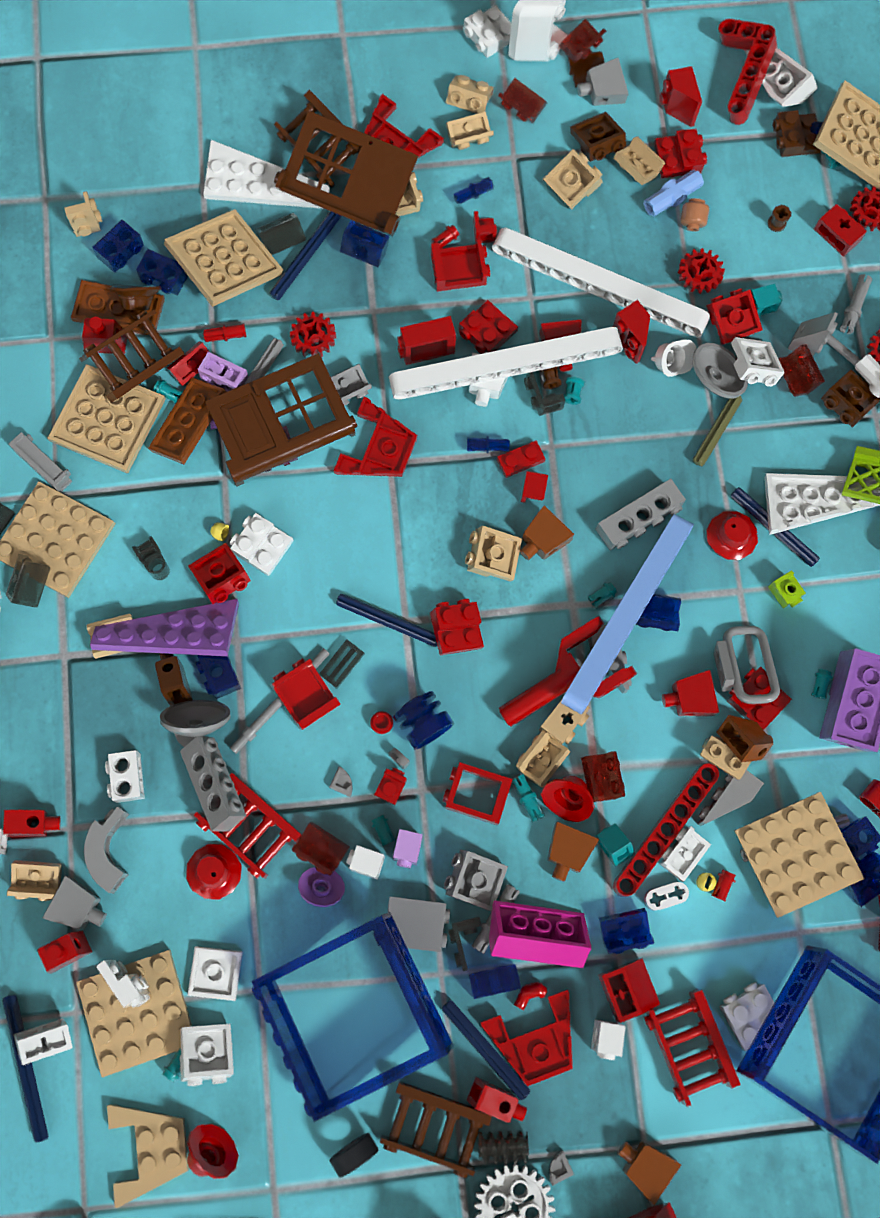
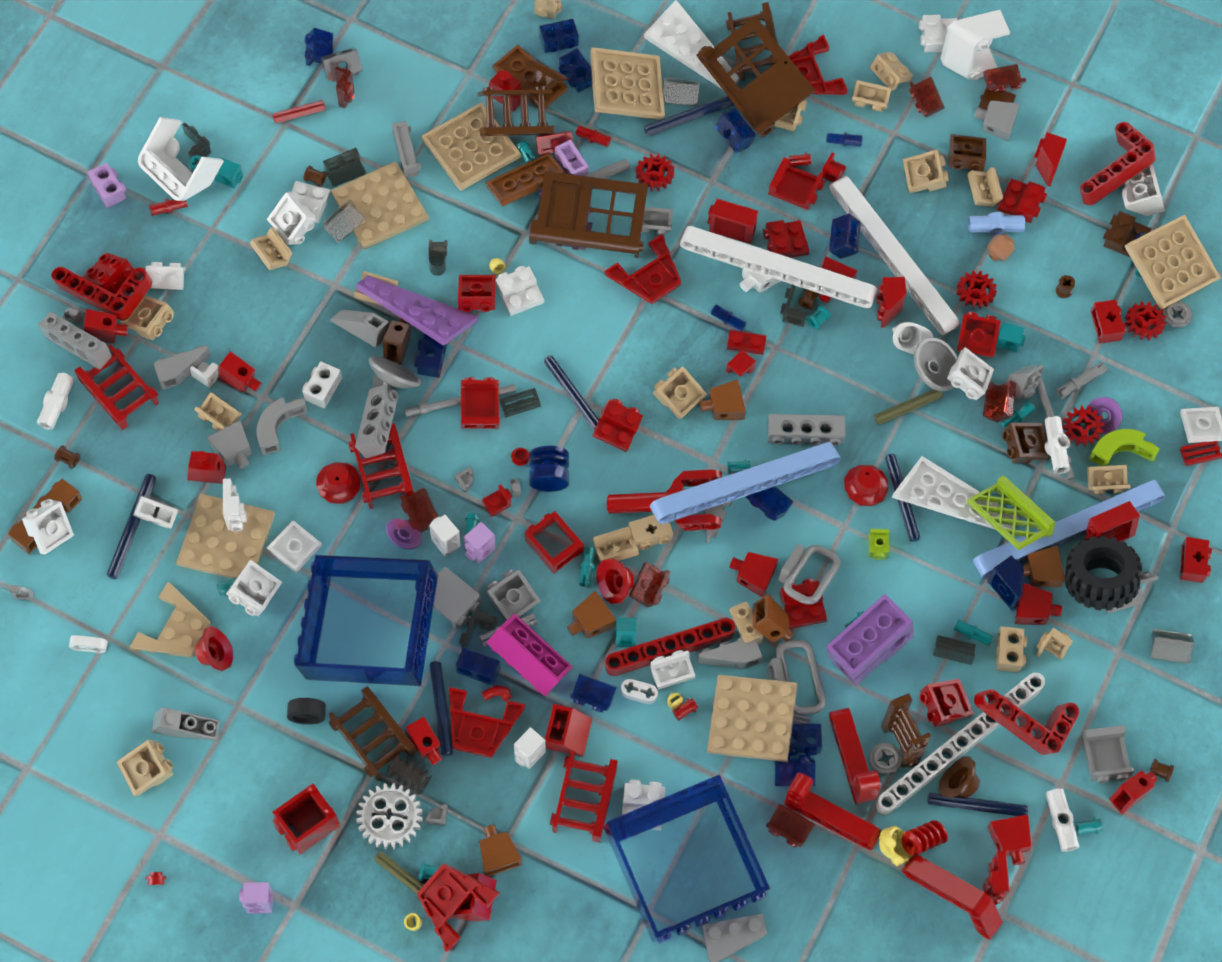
camera: 35 degrees right, 10 degrees down
(124, 684) = (364, 325): none -> light grey slope
(543, 291) = (844, 236): none -> clear blue brick
(788, 788) = (779, 672): none -> light grey bar
(826, 370) = (1019, 414): none -> teal axle

